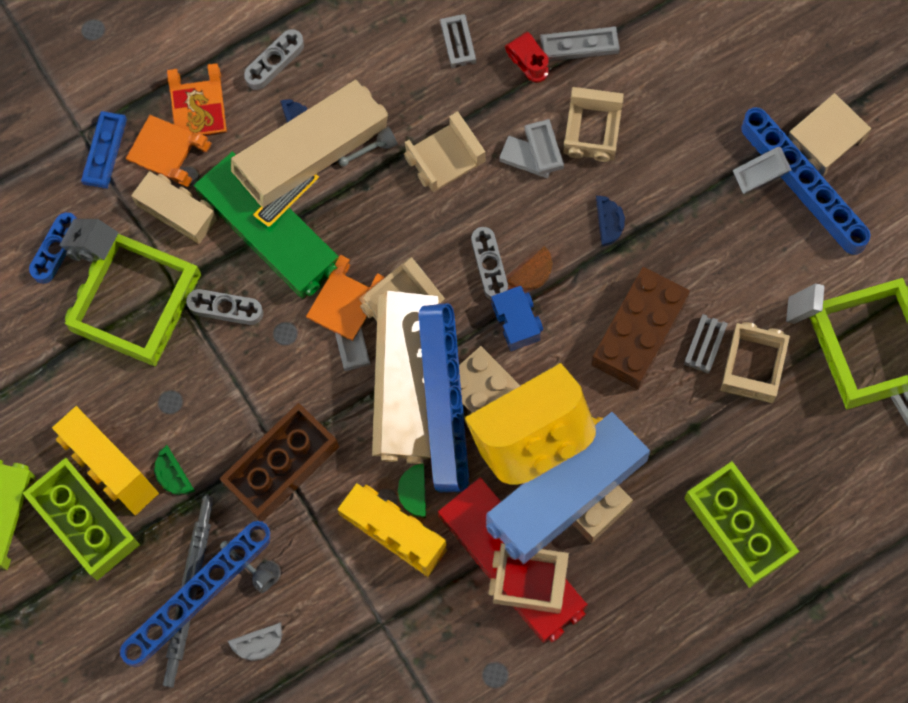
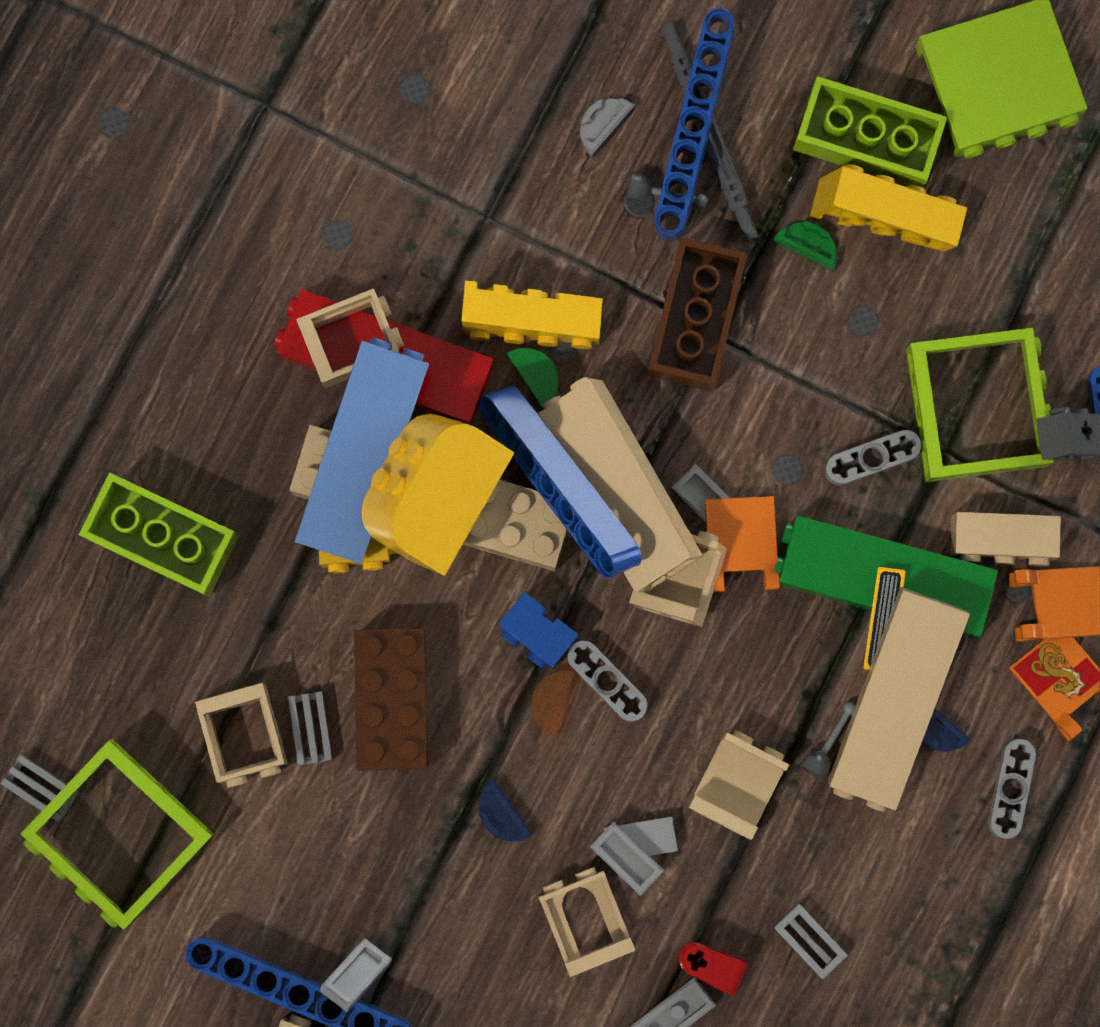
camera: 145 degrees right, 10 degrees up
(805, 303) = (218, 832): light grey tile -> none

